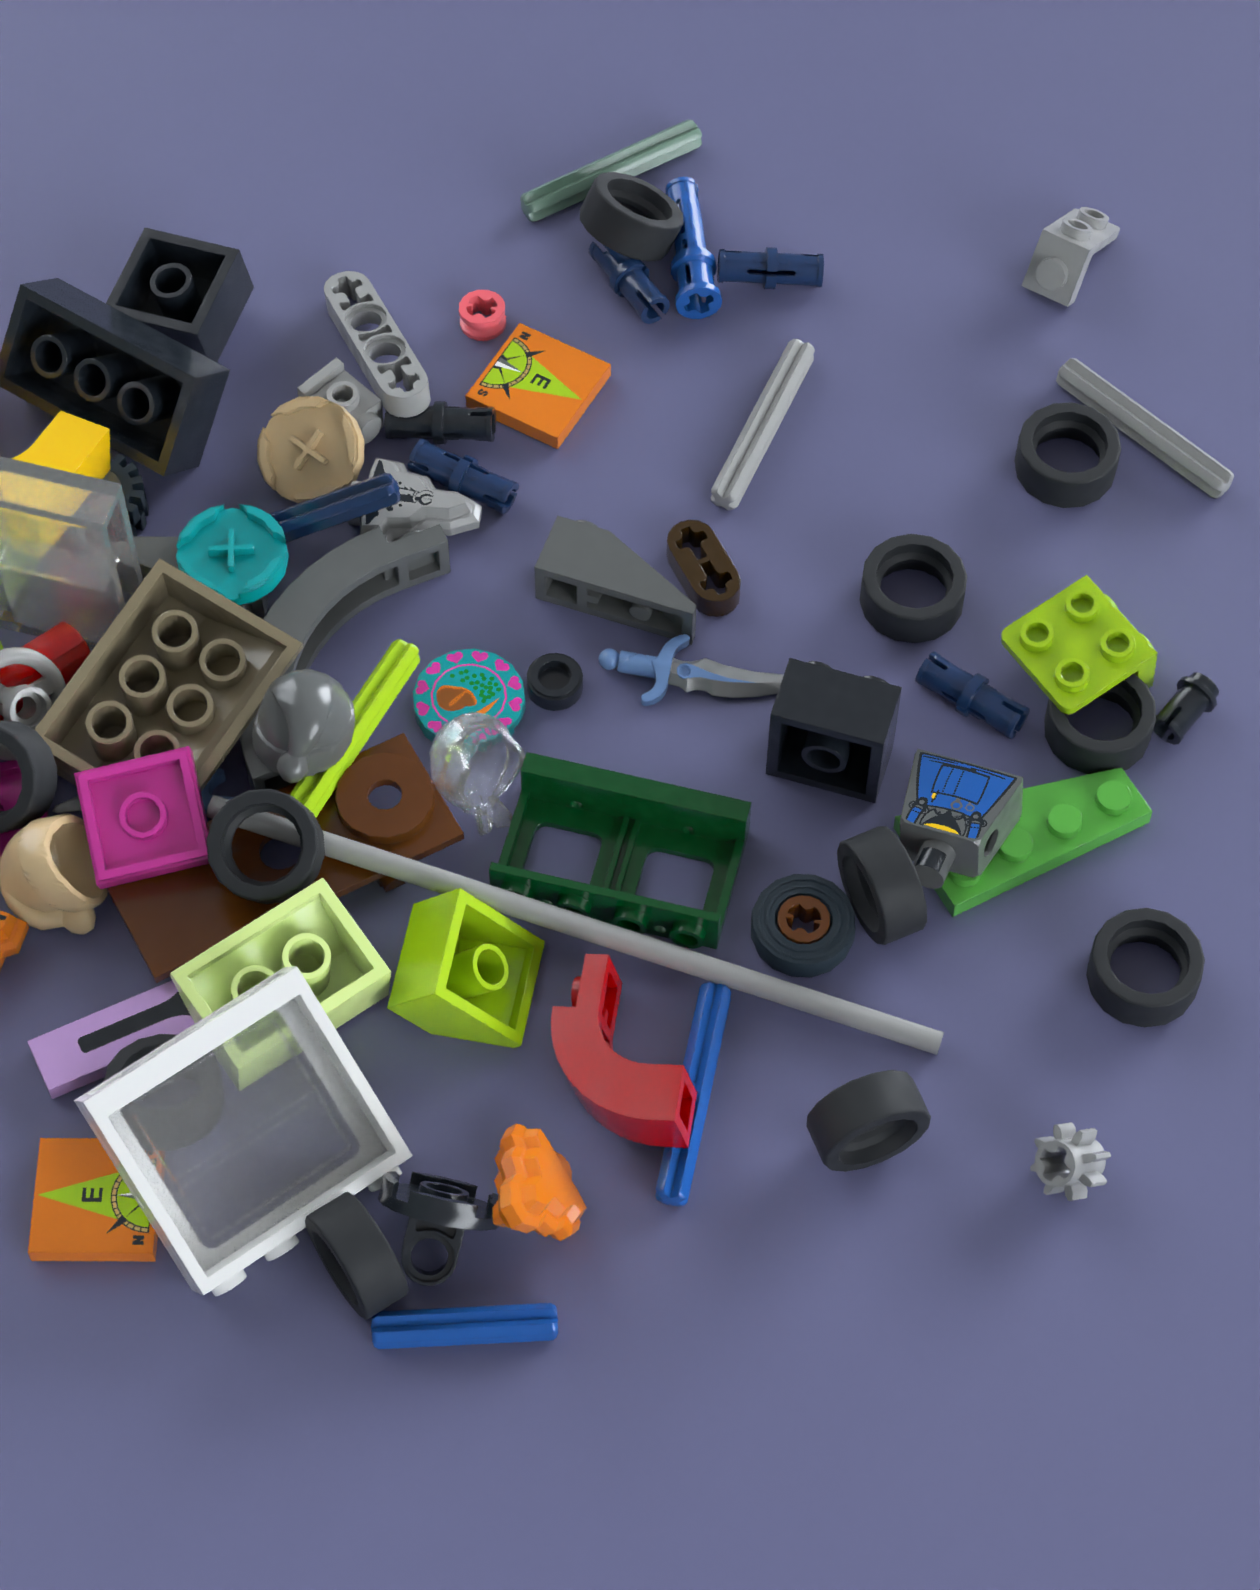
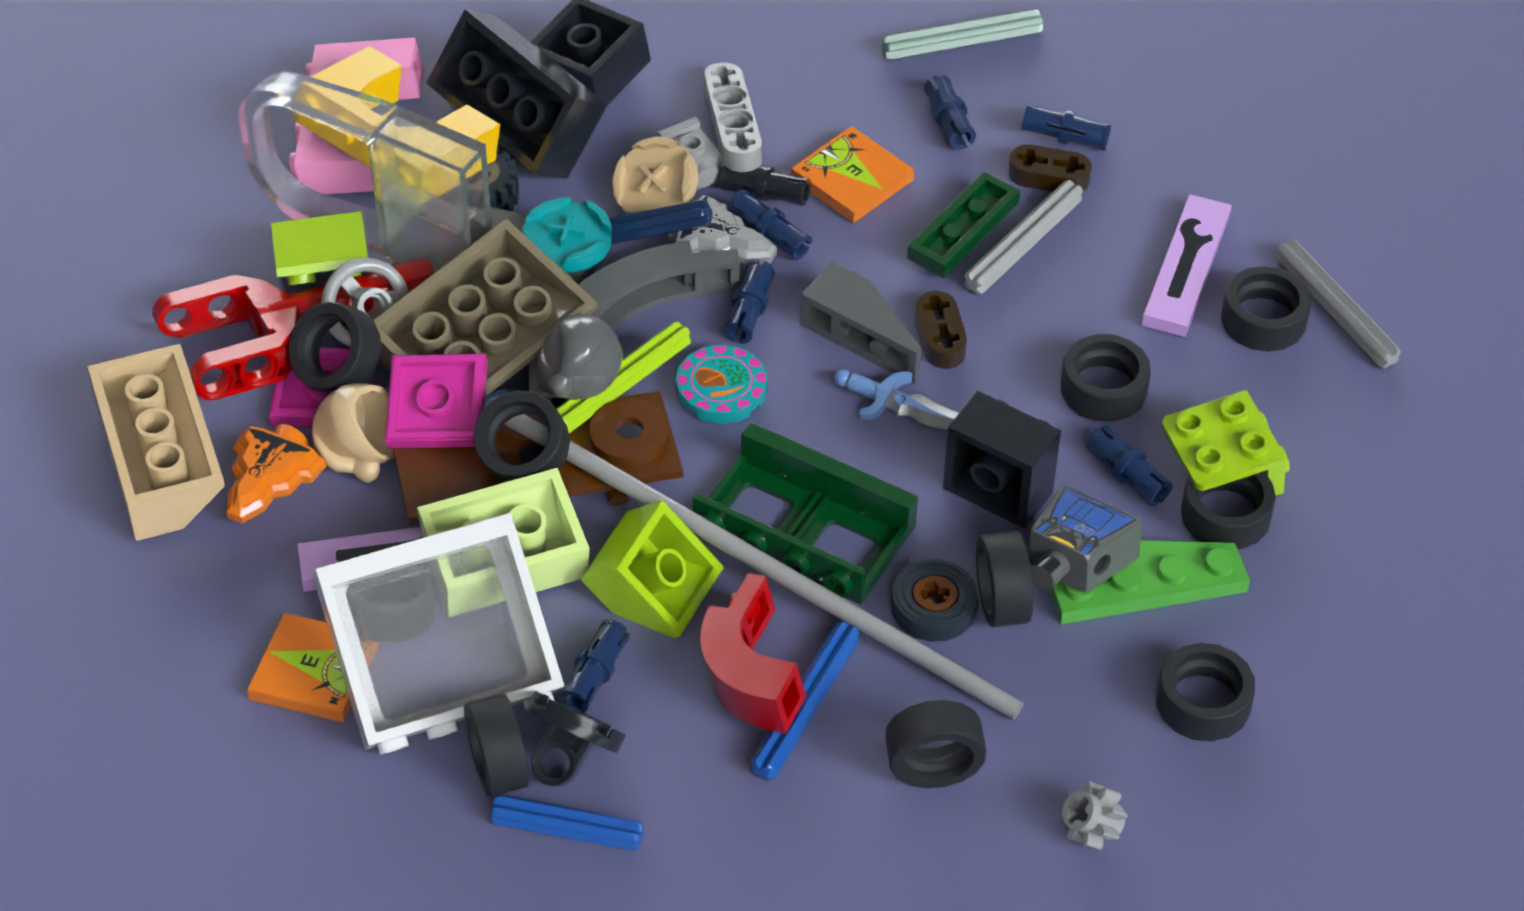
camera: 15 degrees right, 10 degrees down
(435, 1112) = (594, 665): none -> dark blue pin
(469, 584) = (749, 301): none -> dark blue pin
(475, 764) = (708, 425): clear hat -> none
(477, 326) = (821, 124): coral bush -> none
(535, 1186) = (653, 731): orange rock -> none
(554, 681) = (794, 385): black tile -> none
(631, 216) = (963, 65): black tyre -> none
(689, 424) = (963, 224): none -> dark green plate
(693, 263) = (1004, 111): blue pin -> none
(764, 326) = (1048, 167): none -> dark brown beam
(960, 418) = (1186, 265): none -> lavender tile
(1066, 252) = (1310, 161): light grey bracket -> none
(1194, 696) = (1311, 506): black pin -> none

